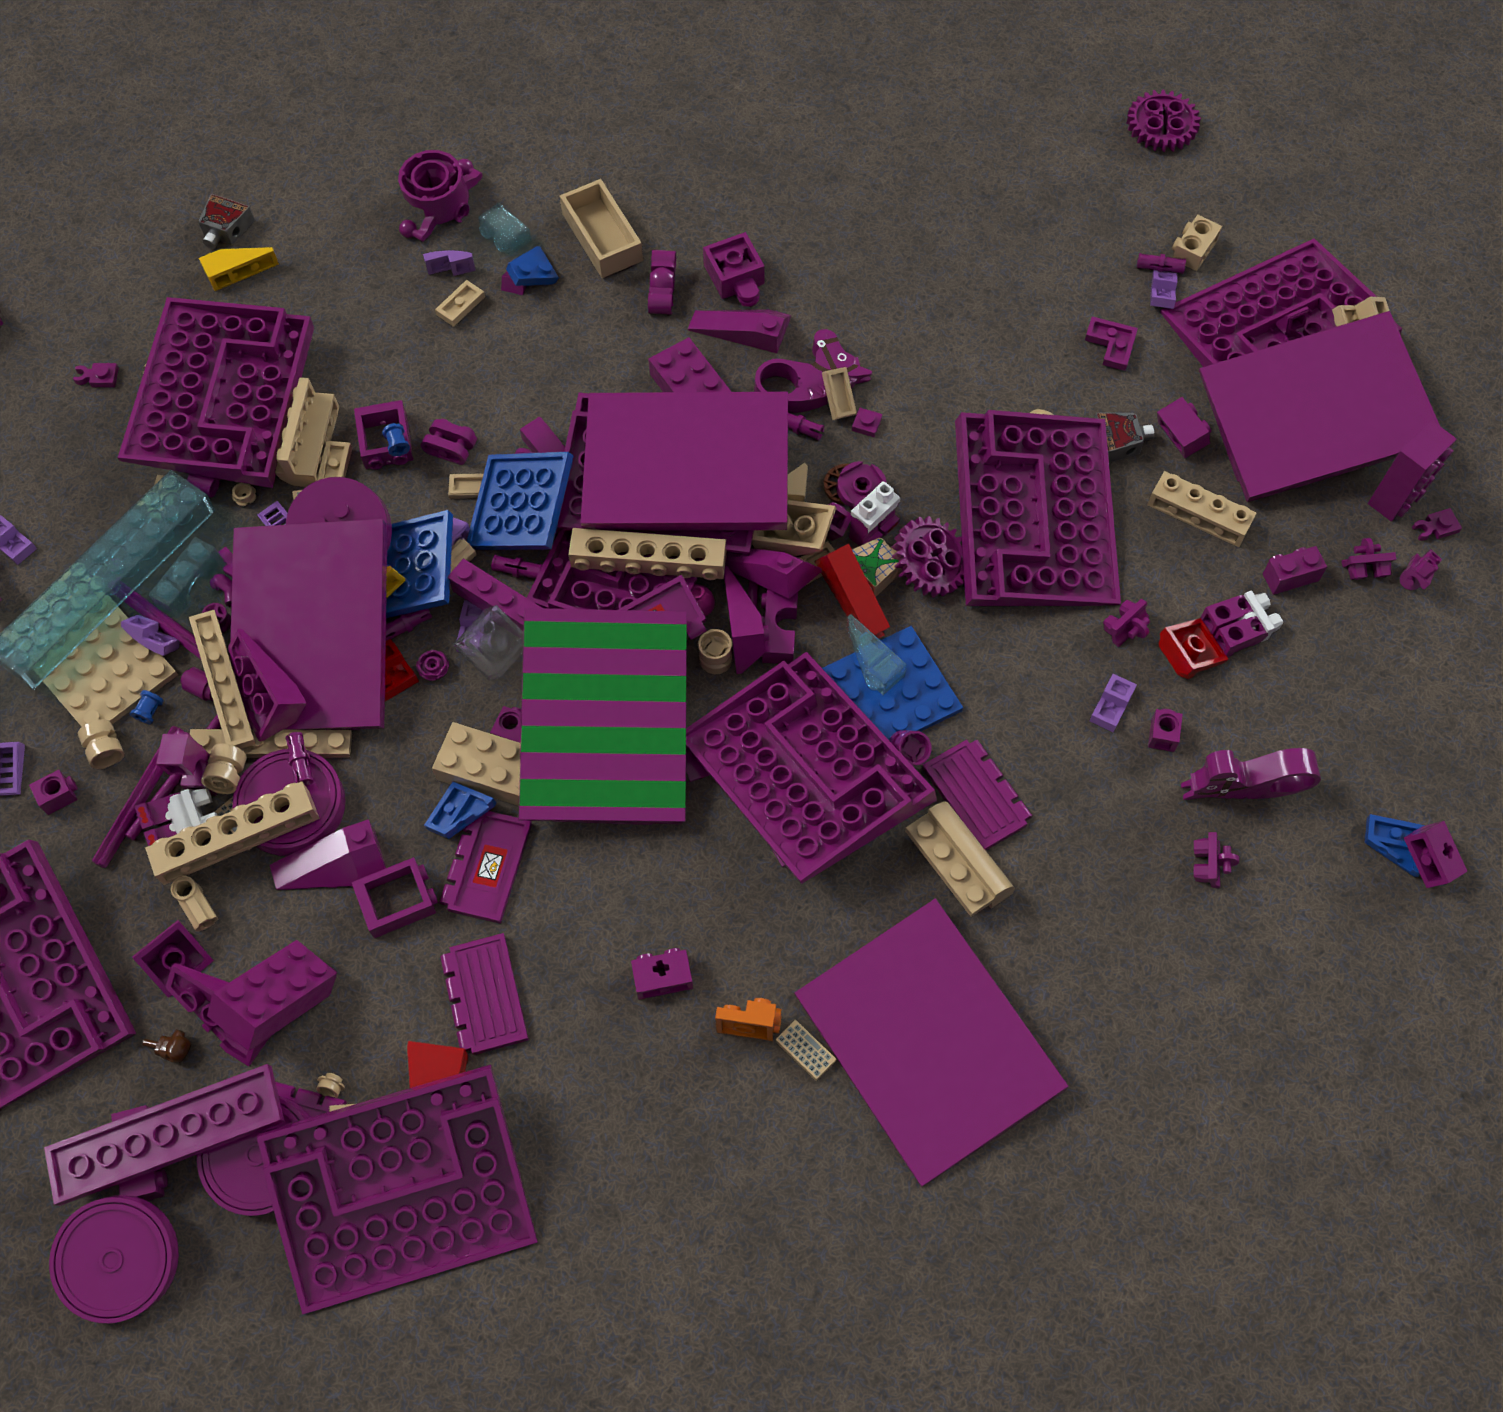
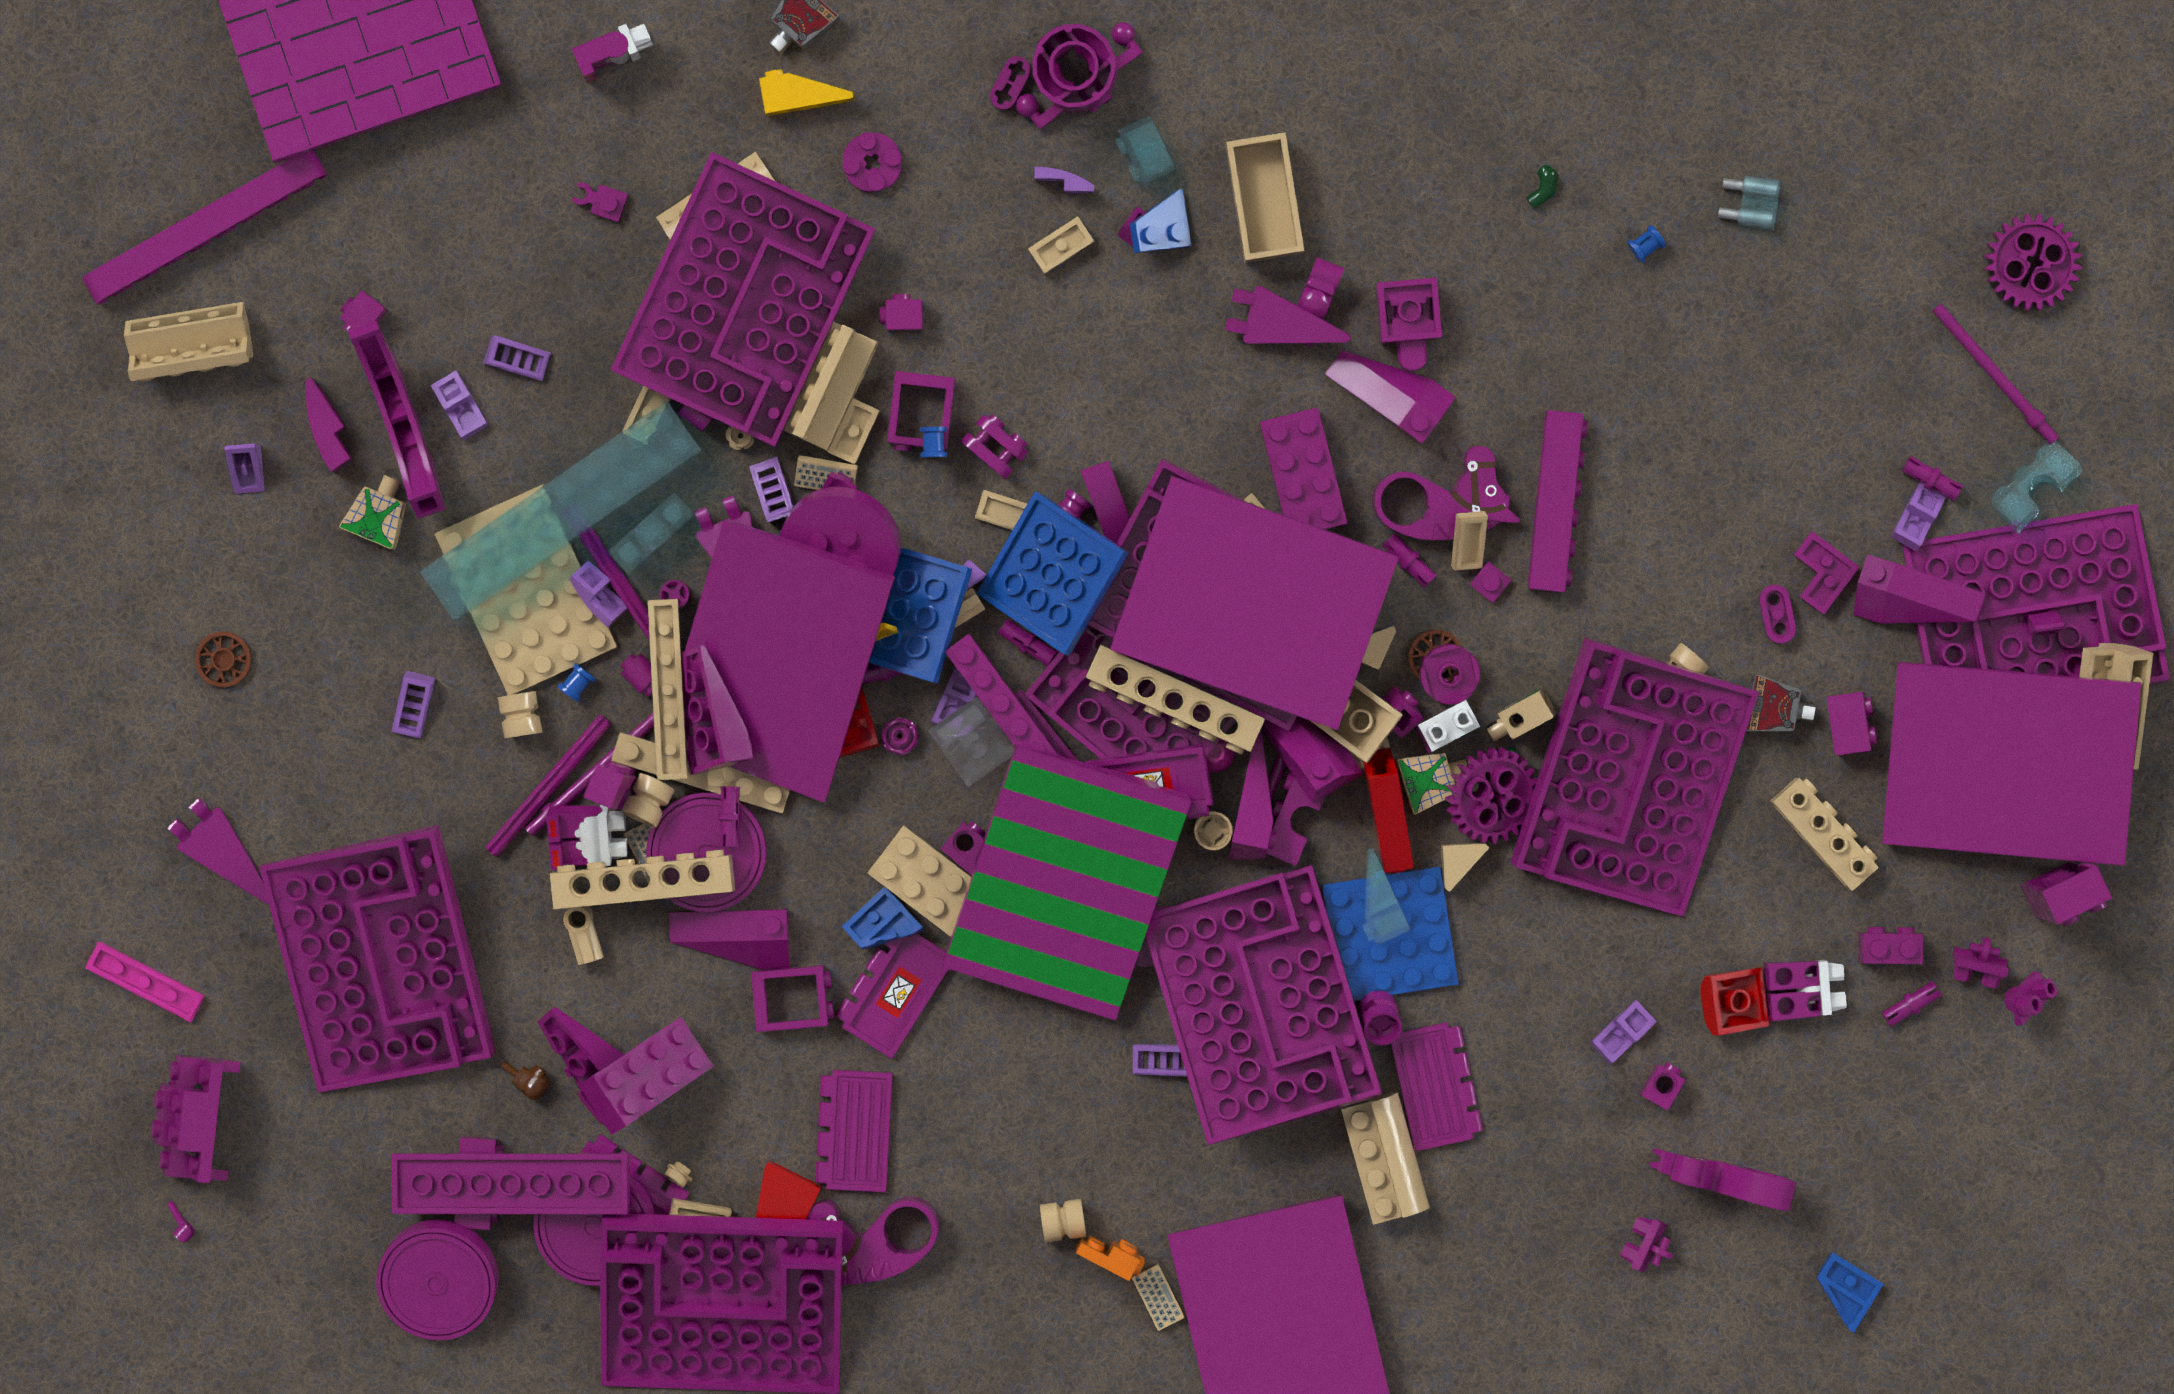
camera: 20 degrees right, 25 degrees up
(31, 501) = (489, 359): none -> medium lavender slope
(45, 787) = (447, 754): magenta brick -> none
(80, 272) = (611, 48): none -> magenta hips
(171, 947) = (551, 987): magenta slope -> none
(223, 583) = (695, 554): magenta arm -> none
(298, 283) = (874, 179): none -> magenta plate
(351, 377) = (902, 313): none -> magenta brick
(387, 220) = (1003, 80): none -> magenta beam
(528, 1097) = (870, 1254): none -> magenta animal
(639, 296) = (1280, 321): none -> magenta flag
(647, 978) = (1025, 1180): magenta brick -> none
(695, 1007) = (1063, 1220): none -> tan wheel
(735, 837) = (1151, 1070): none -> medium lavender slope
(804, 175) = (1547, 186): none -> dark green arm
(889, 184) = (1646, 244): none -> blue bush
(894, 354) = (1555, 501): none -> magenta brick
(923, 613) = (1458, 860): none -> tan slope
(932, 492) = (1534, 709): none -> tan torso
(956, 139) = (1758, 202): none -> clear light blue piece
(1094, 378) = (1777, 613): none -> magenta plate
(1131, 624) = (1691, 940): magenta hips -> none
(1177, 330) = (1903, 595): none -> magenta wedge
(1197, 241) = (1990, 471): tan brick -> none
(1213, 208) = (2034, 417): none -> magenta bar
(1232, 251) = (2051, 466): none -> clear light blue arch
(1331, 609) = (1911, 1004): none -> magenta pin
(1435, 854) = (1874, 1322): magenta brick -> none
(1440, 523) = (2086, 941): magenta plate -> none

